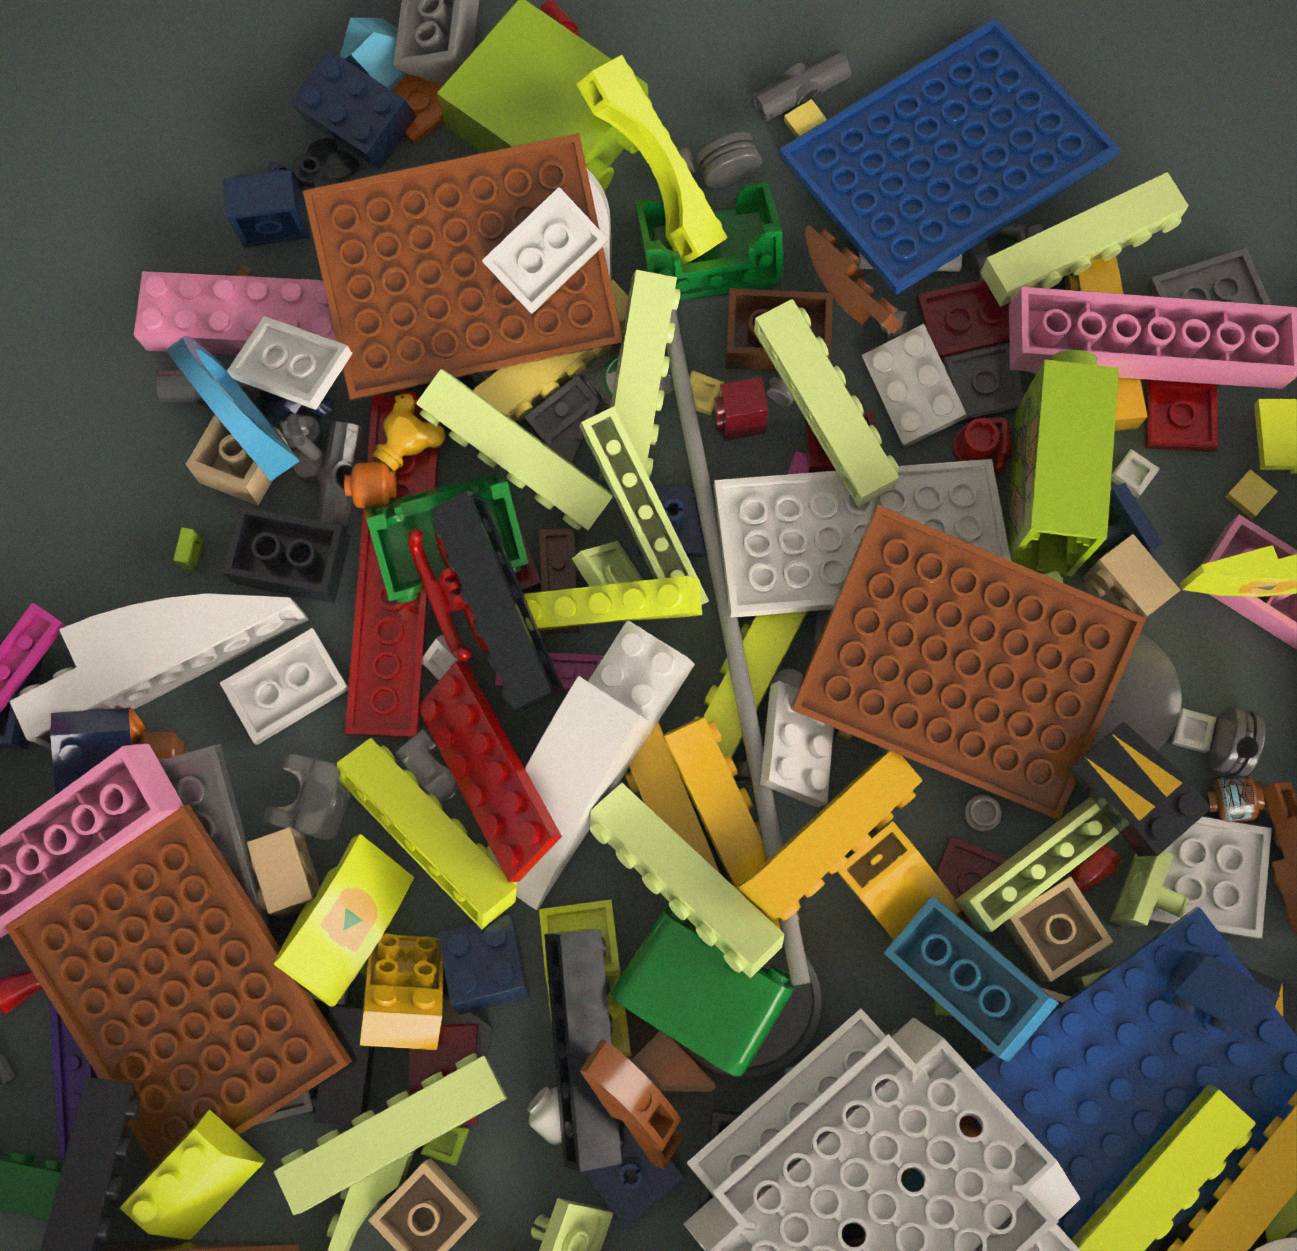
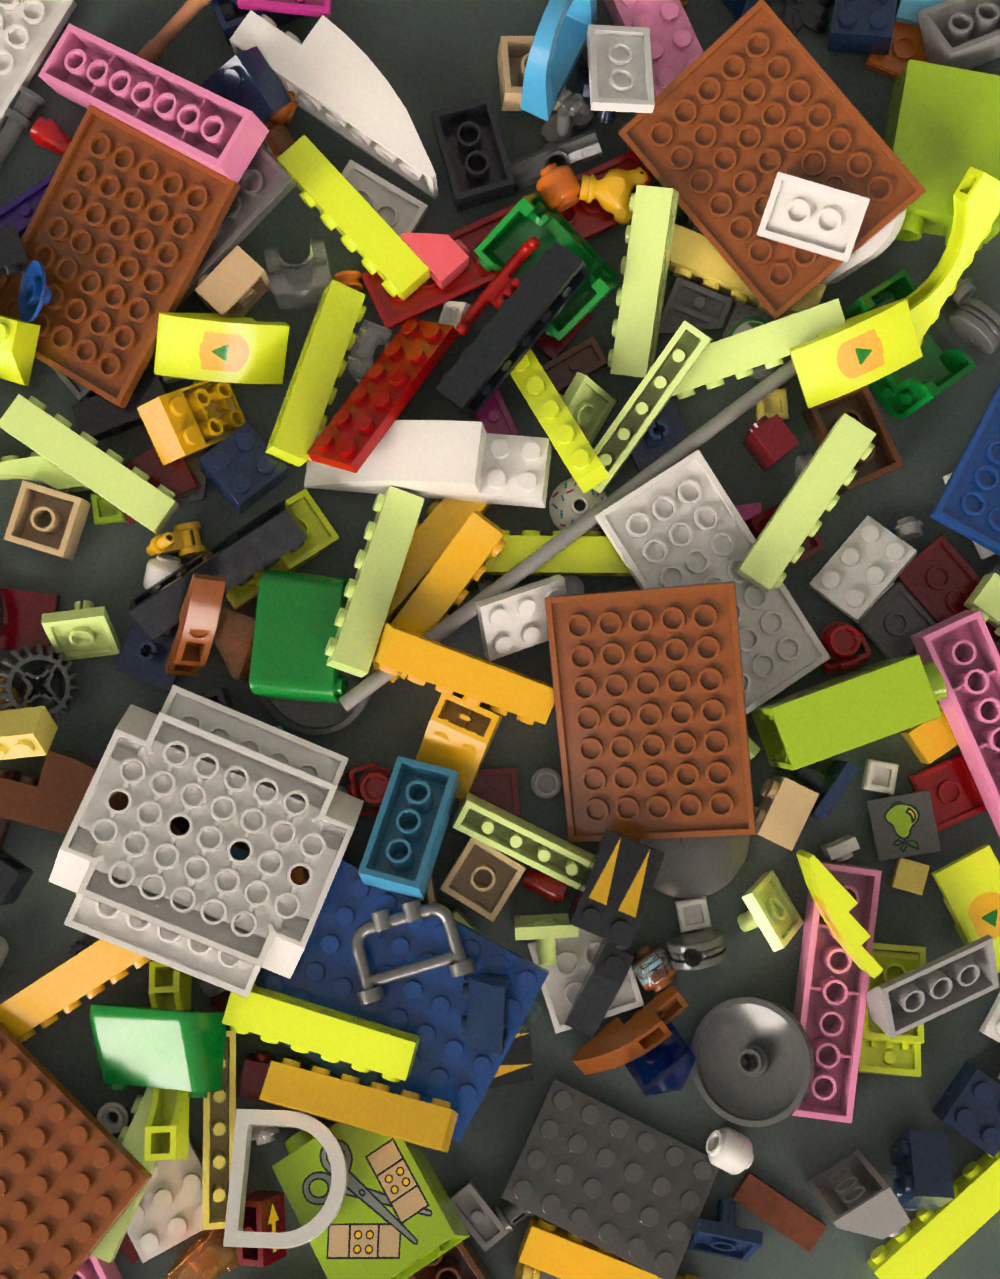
camera: 55 degrees right, 10 degrees up
(168, 1097) = (33, 291): none -> blue dish
(188, 549) = (439, 77): lime tile -> none
(286, 708) = (354, 219): none -> neon yellow brick
(343, 747) = (349, 278): none -> orange bush
(371, 642) = (440, 254): none -> coral slope
(526, 1072) = (183, 540): none -> yellow piece
(698, 281) = (856, 353): none -> neon yellow slope
(701, 650) = (562, 503): none -> white dish
(844, 279) = (921, 468): dark orange slope -> none
(899, 1000) = (370, 786): none -> red piece
(1061, 1058) = (384, 920): none -> flat silver bar
(1192, 546) = (841, 848): none -> white plate
(1196, 474) = (903, 825): none -> dark grey tile
(1228, 647) = (770, 911): none -> yellowish green tile
(1233, 863) = (599, 987): none -> black slope

